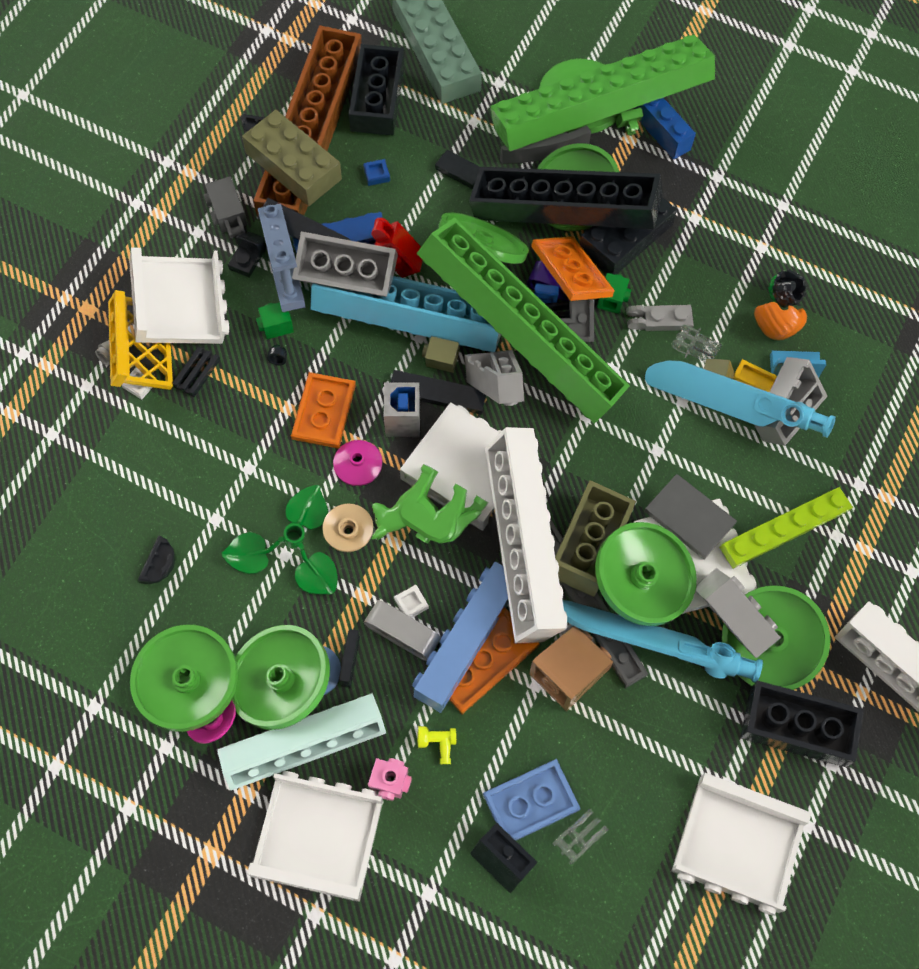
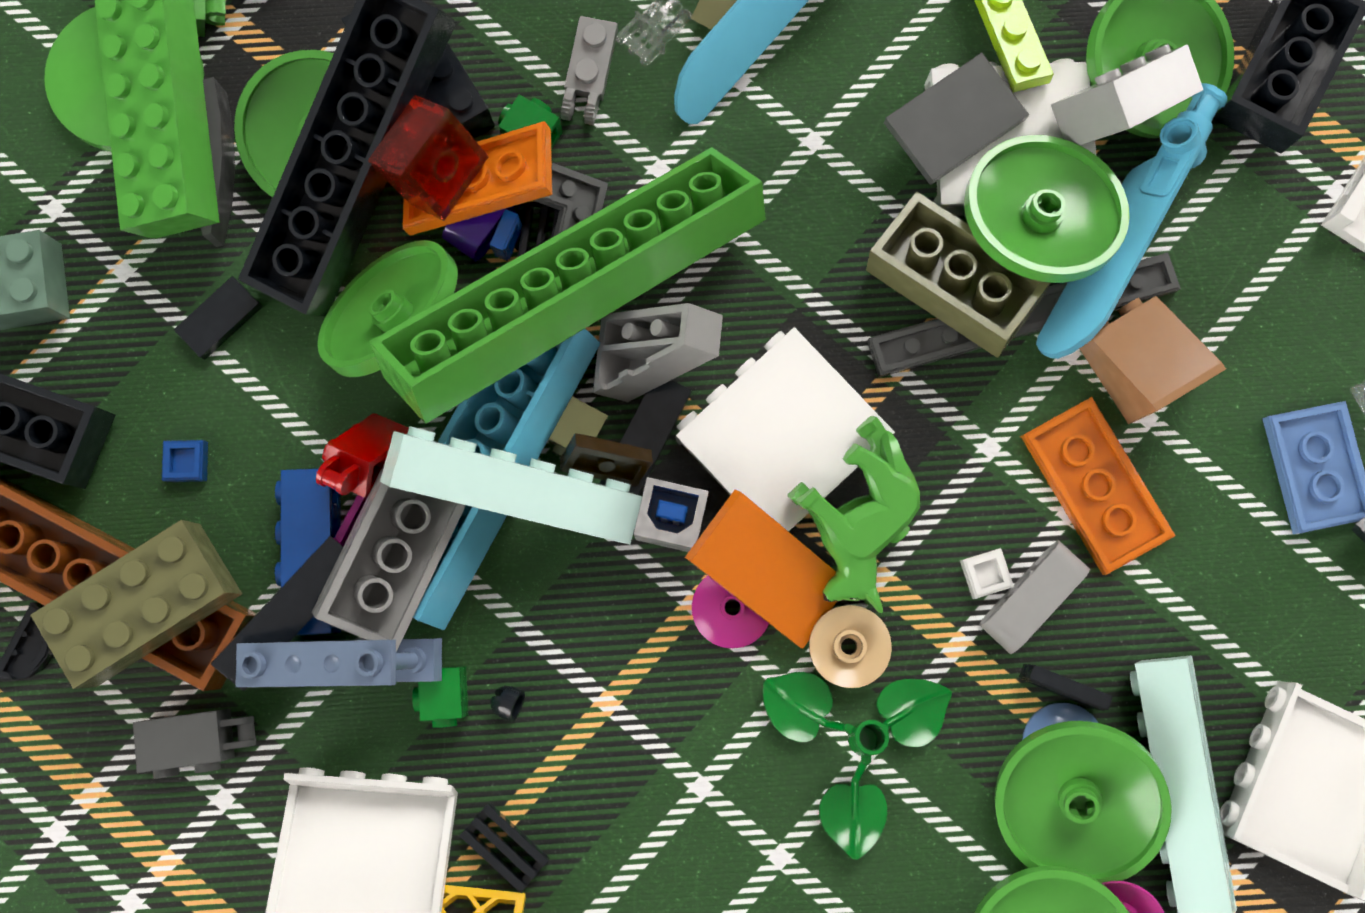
camera: 75 degrees left, 15 degrees up
(248, 254) = (293, 717): black slope -> none
(323, 410) = (626, 644): orange tile -> none
(382, 462) = (764, 567): none -> orange tile
(382, 771) = (1264, 665): bright pink brick -> none
(395, 311) = (510, 488): none -> light aqua brick
(425, 365) = (606, 459): none -> dark brown plate
(445, 738) = (1209, 570): neon yellow piece -> none
(464, 640) = (1071, 501): medium blue brick -> none
(525, 536) = (953, 371): white brick -> none
(572, 235) = (429, 157): none -> clear red brick

